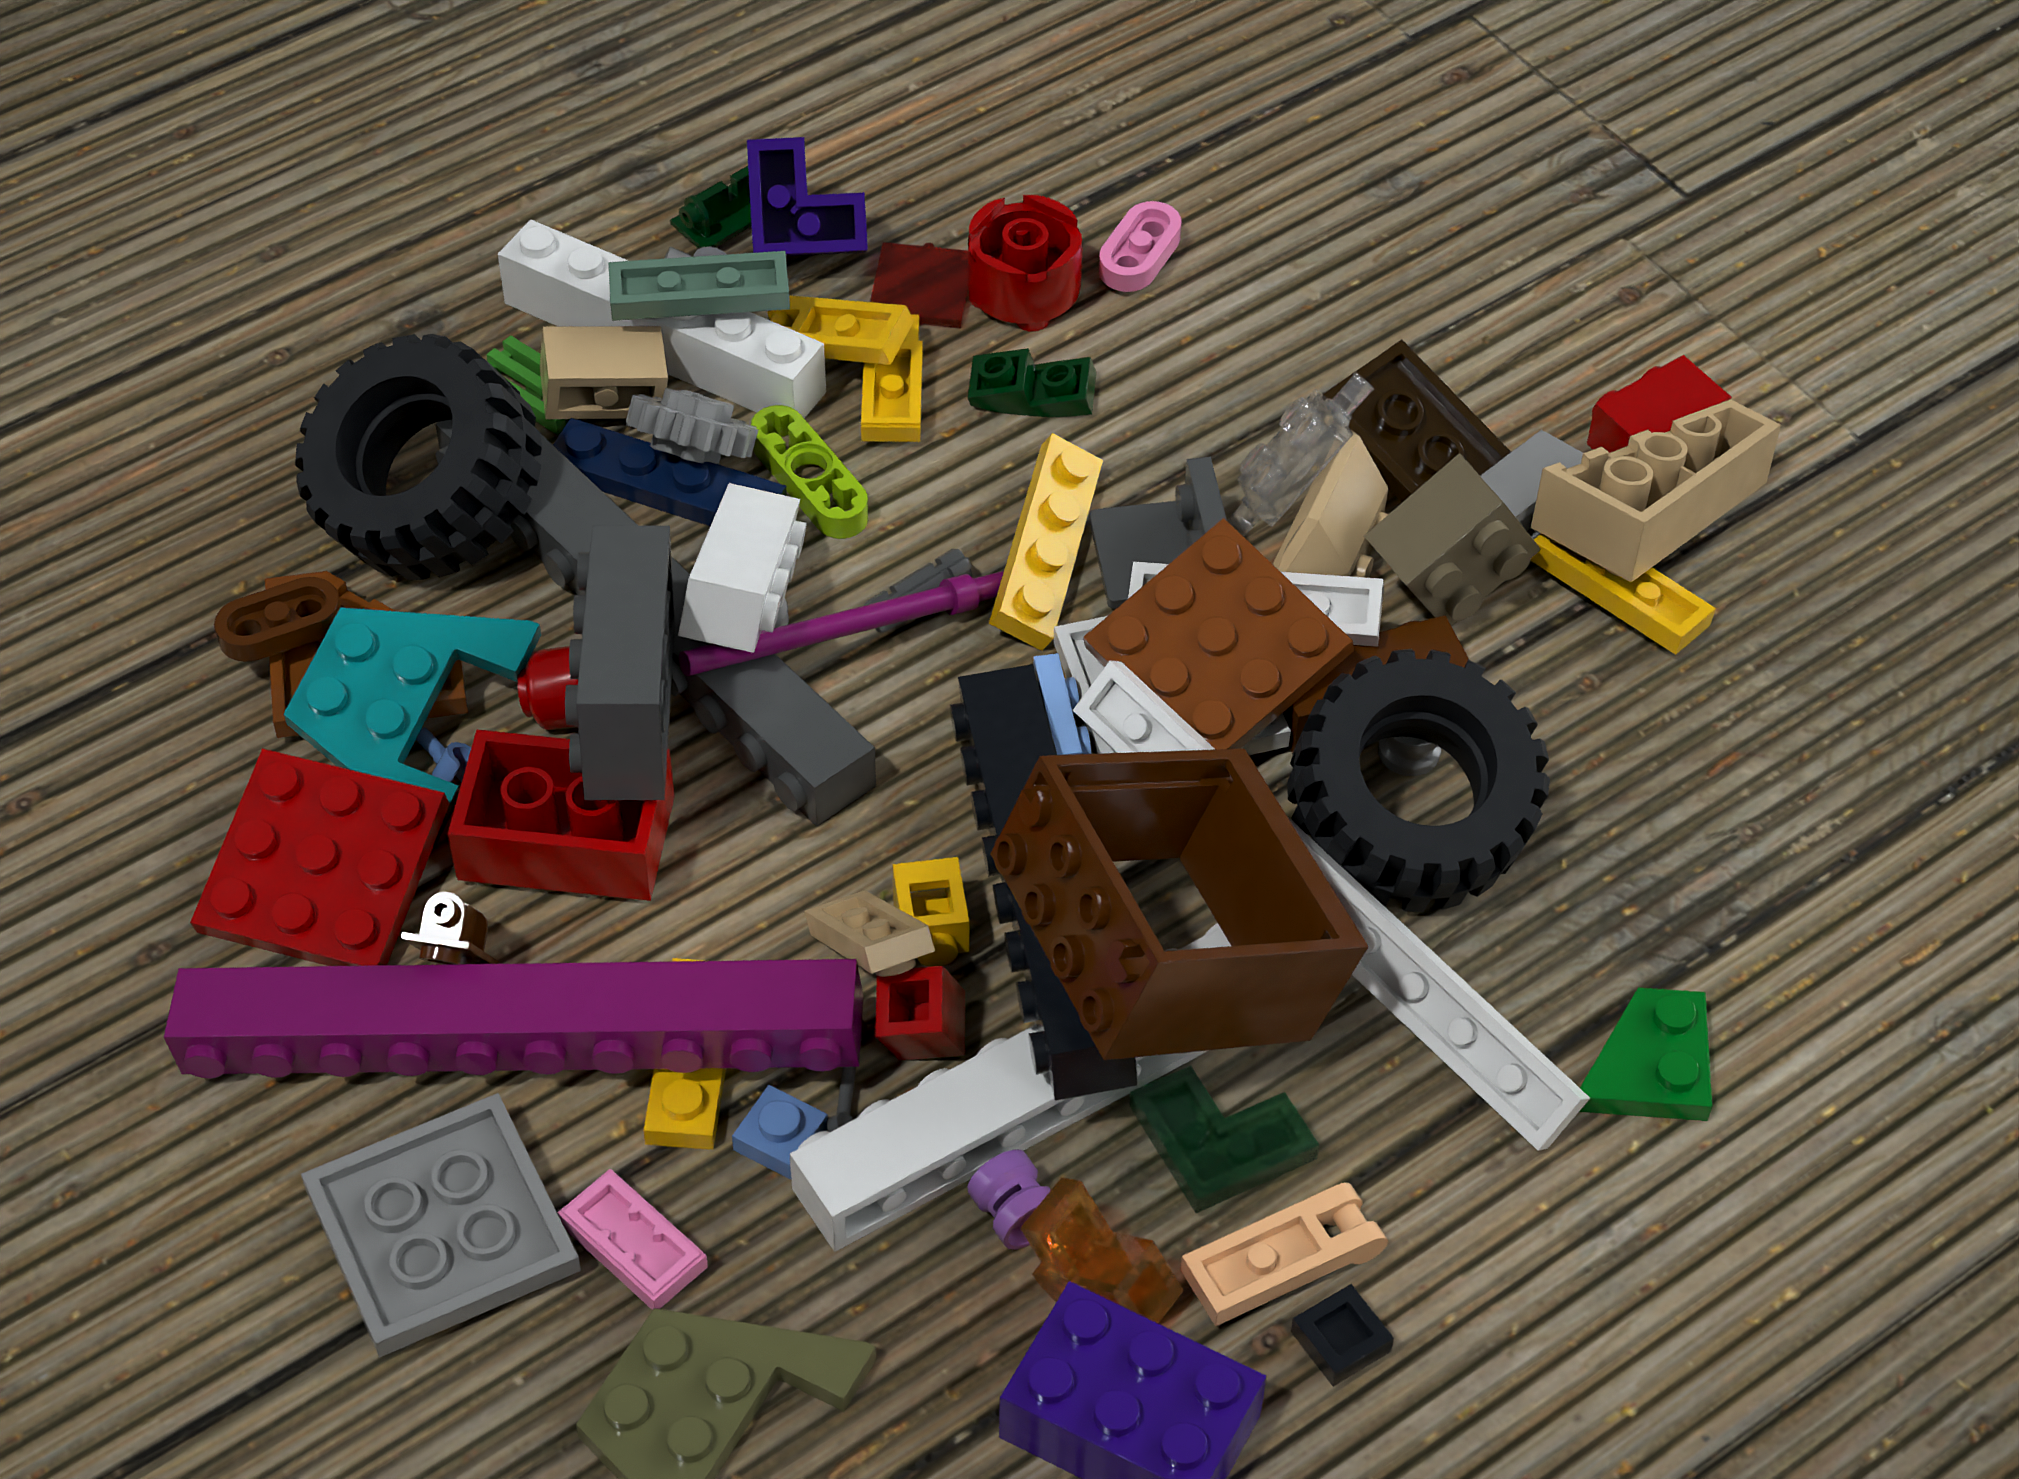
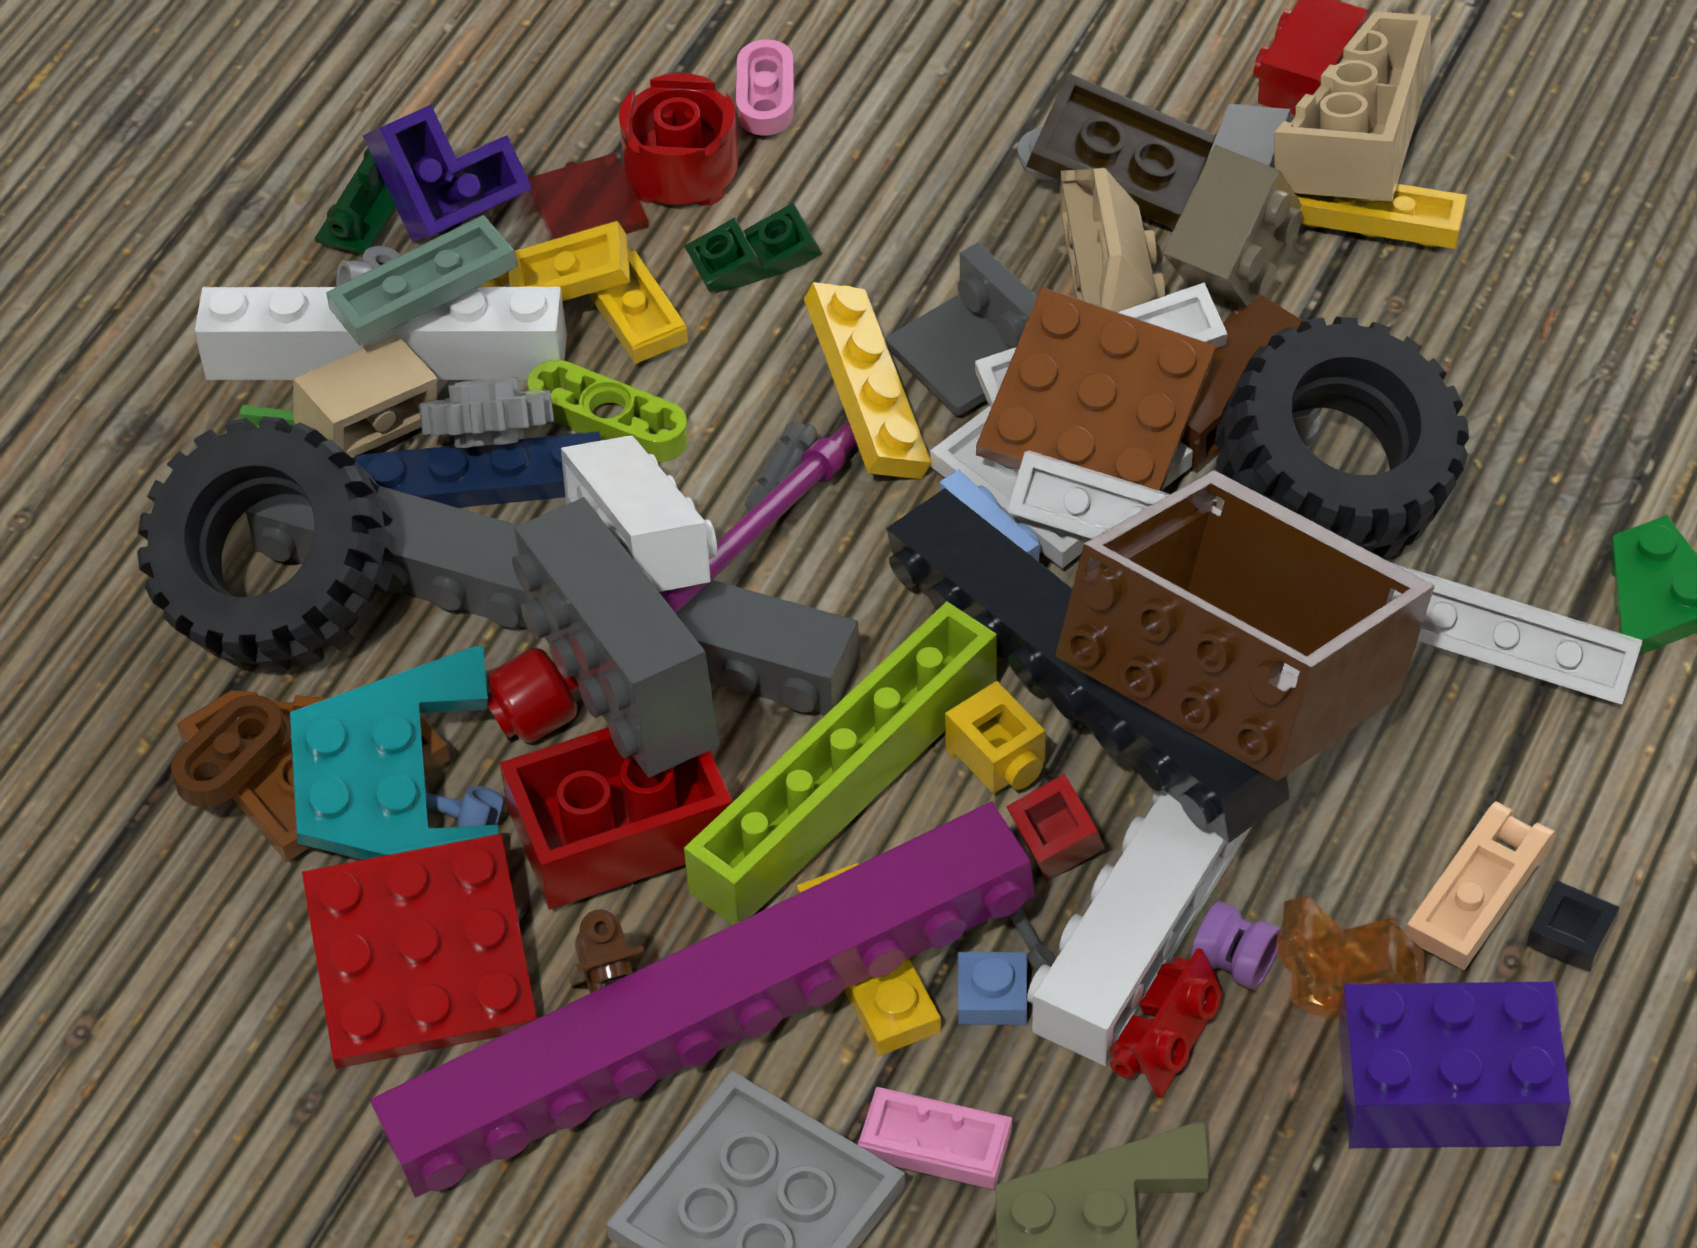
camera: 25 degrees left, 0 degrees up
(774, 867) = (839, 765): none -> lime brick
(871, 932) = (971, 777): tan plate -> none
(921, 1238) = (1183, 1002): none -> red hinge
(1215, 1154) = (1370, 830): clear green plate -> none
(1295, 456) = (1049, 207): clear plate -> none

